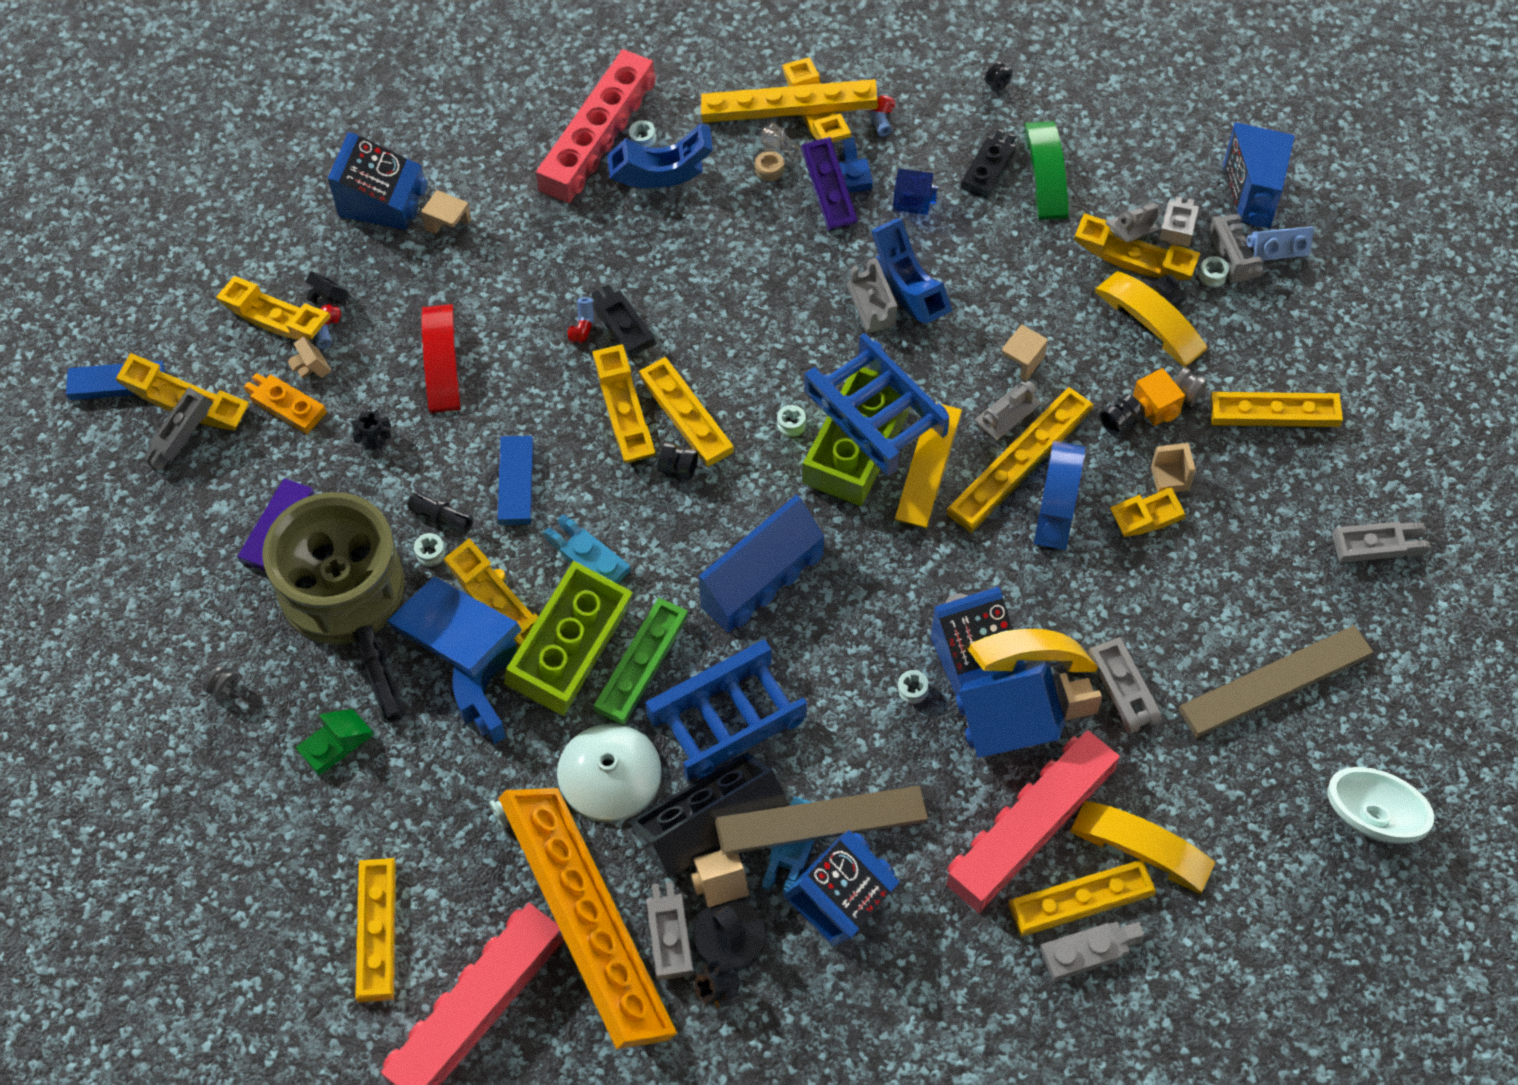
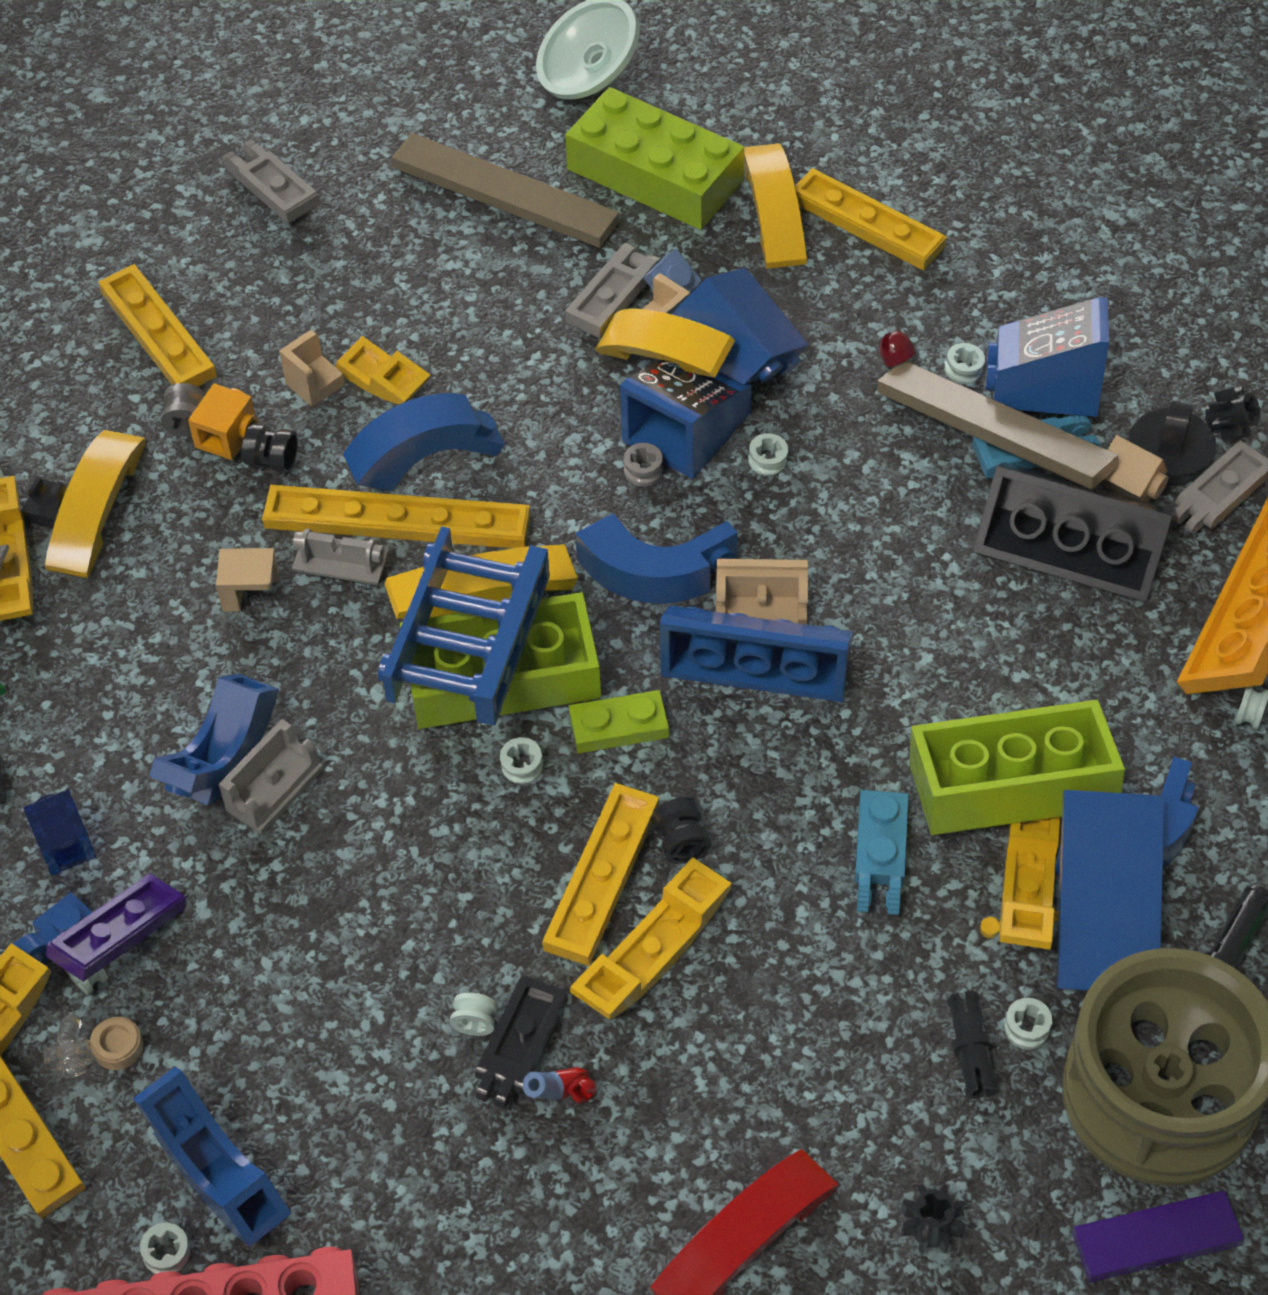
camera: 125 degrees left, 5 degrees down
(515, 480) = (850, 1000): blue tile -> none
(613, 790) = (1120, 673): light aqua dish -> none
(641, 661) = (962, 697): bright green plate -> none
(652, 308) = (474, 1014): none -> light aqua bush
(725, 678) = (937, 618): blue fence -> none
(778, 482) = (618, 721): none -> lime plate
(805, 606) = (763, 588): none -> tan hinge
(873, 548) = (650, 571): none -> blue arch
(907, 867) = (967, 354): none -> light aqua bush
(938, 818) = (896, 348): none -> dark red hinge
(1031, 821) = (841, 277): coral brick -> none
(1089, 949) = (911, 187): light grey hinge -> none
(1107, 722) = (676, 269): none -> medium blue plate
(1234, 784) = (655, 158): none -> lime brick

